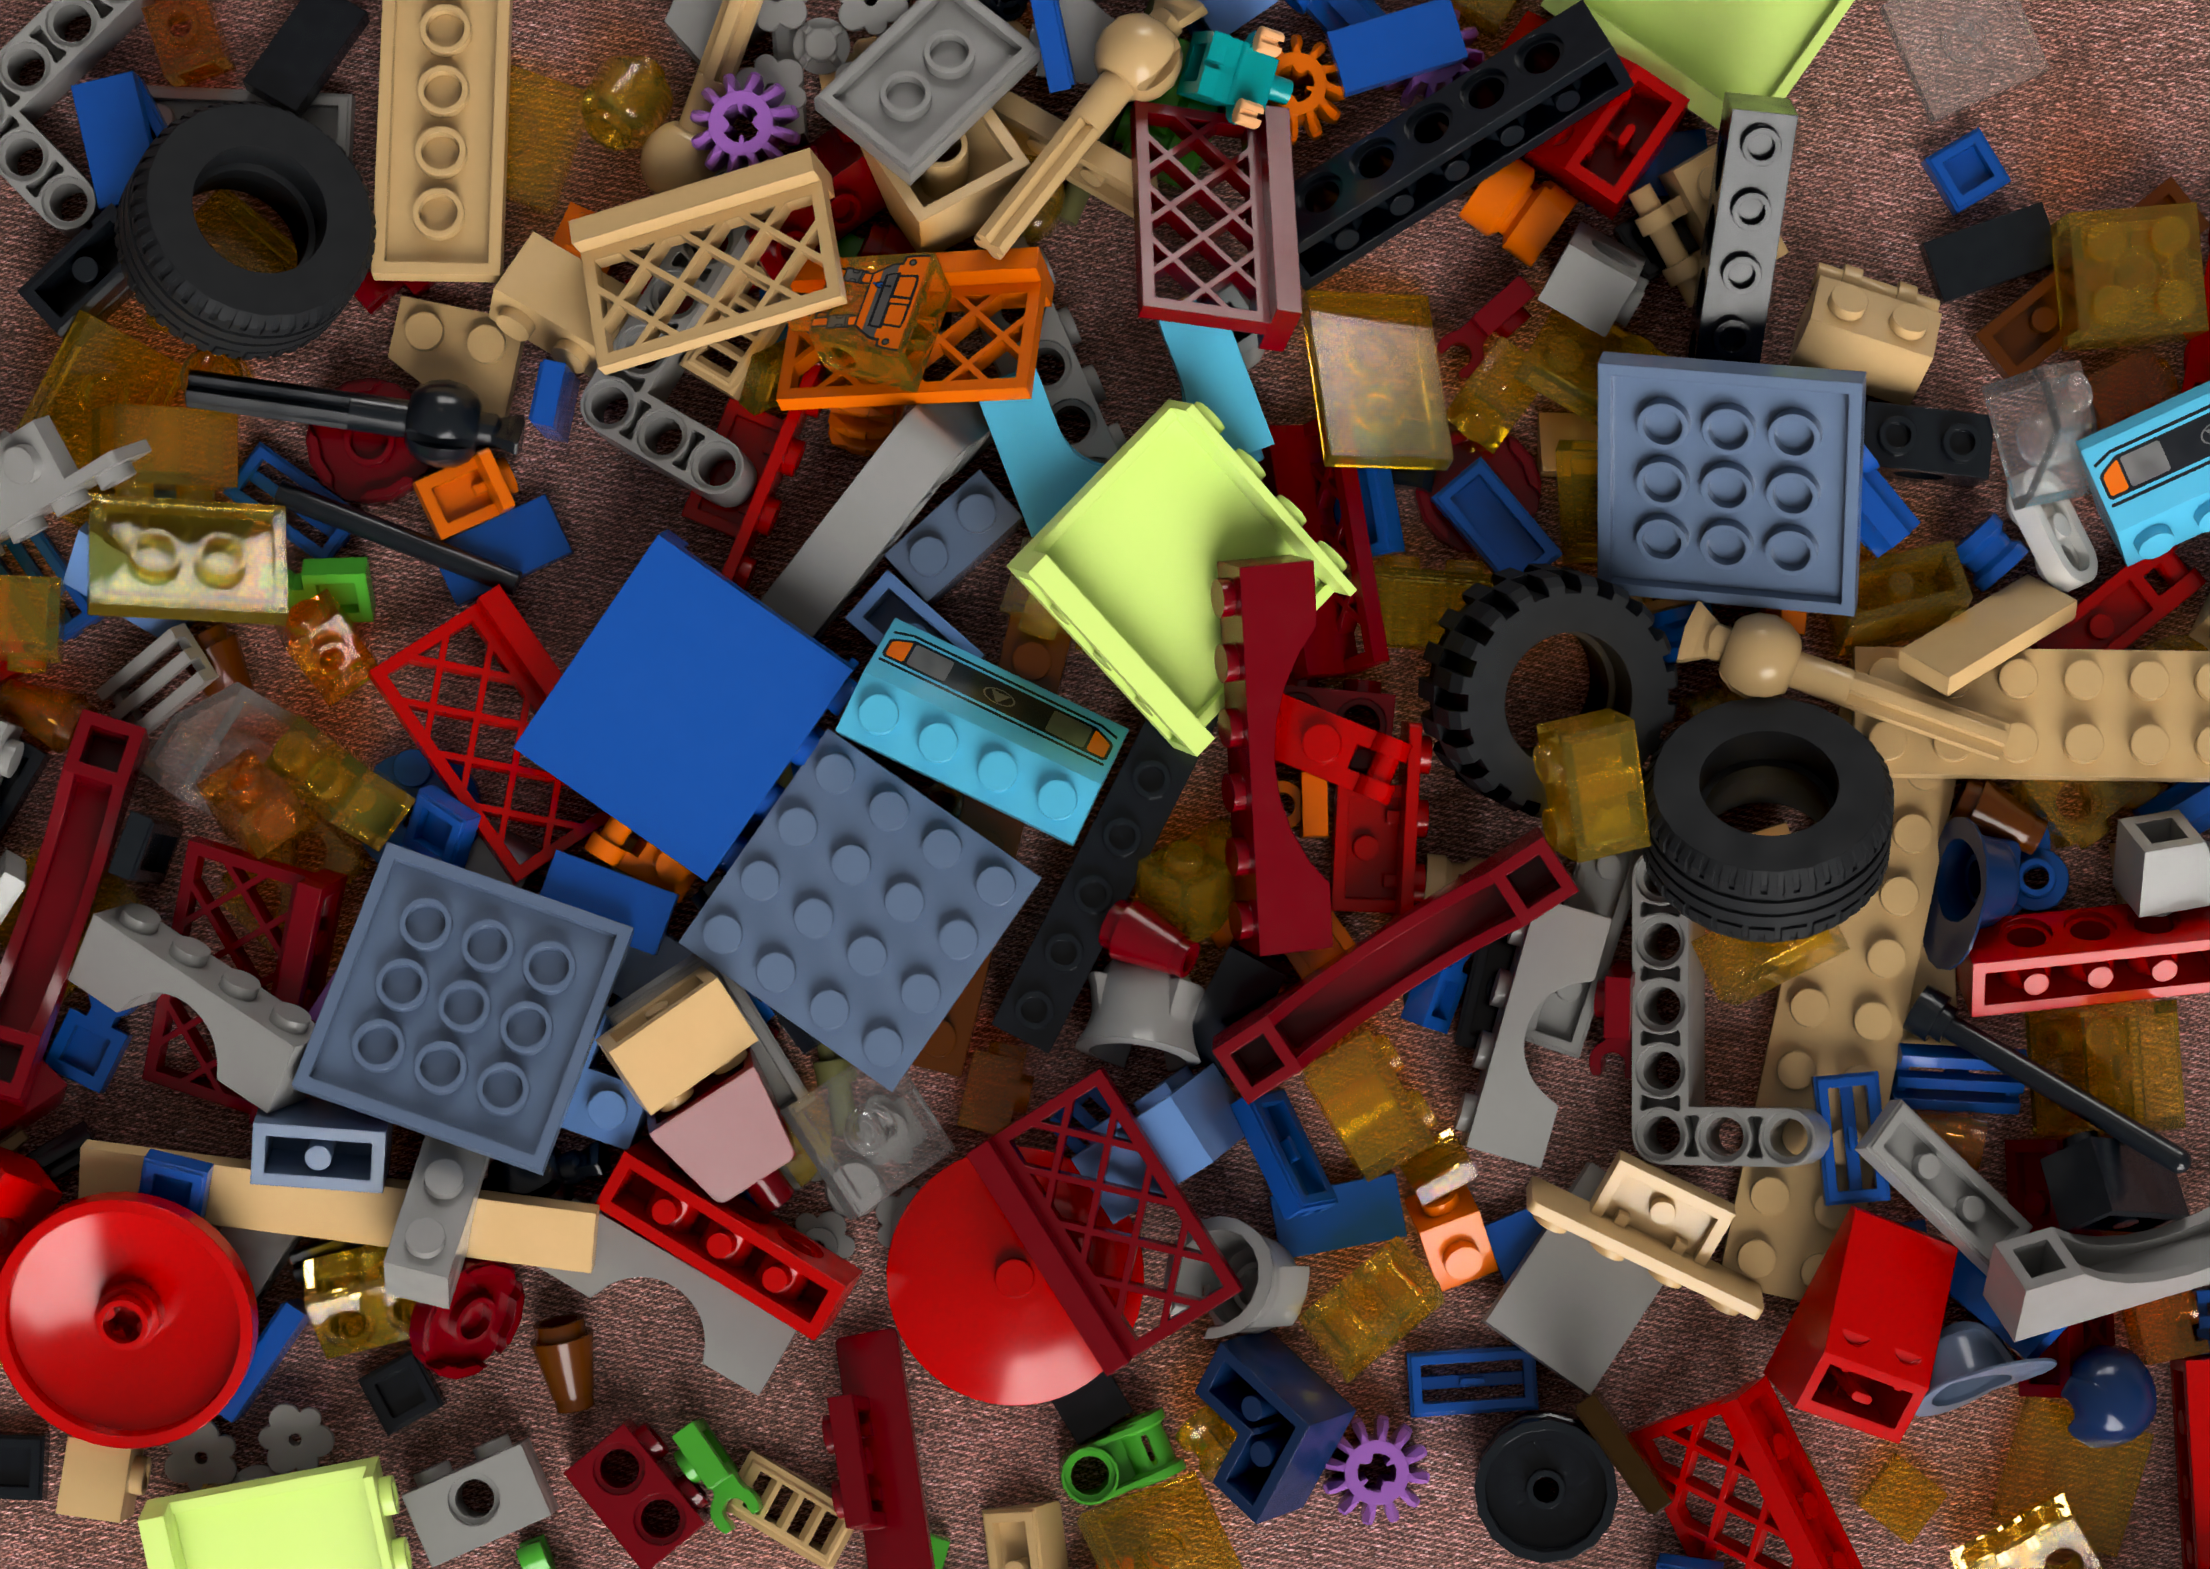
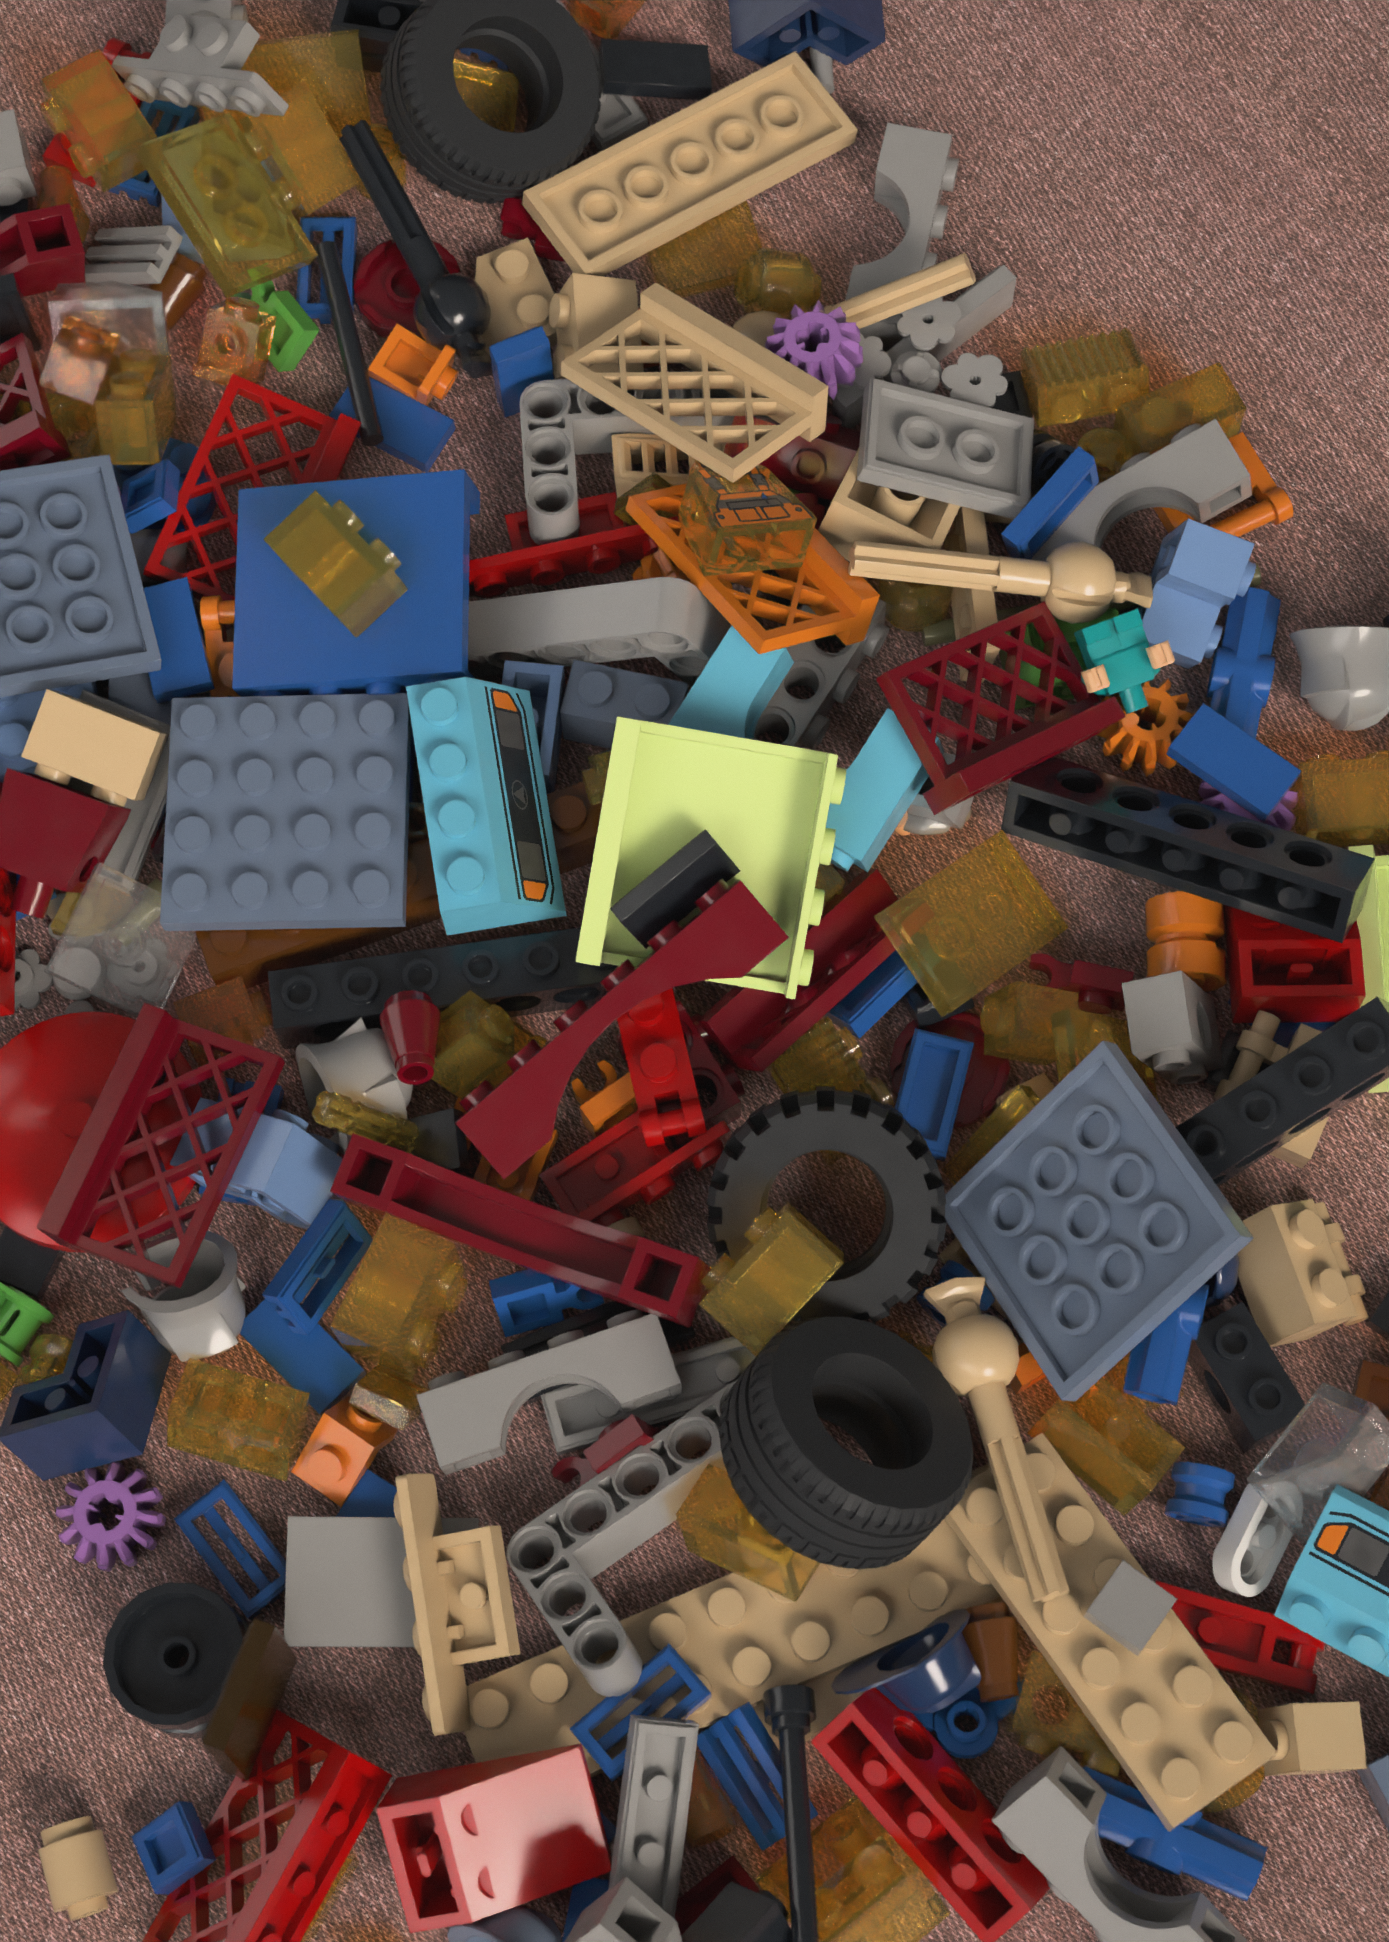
camera: 65 degrees right, 15 degrees down
(670, 711) = (337, 563): none -> clear yellow brick
(1192, 625) = (674, 887): none -> black tile
(1200, 1032) = (364, 1120): none -> clear yellow axle
(1987, 634) = (1130, 1529): tan tile -> none
(2056, 684) = (1130, 1607): none -> light grey tile

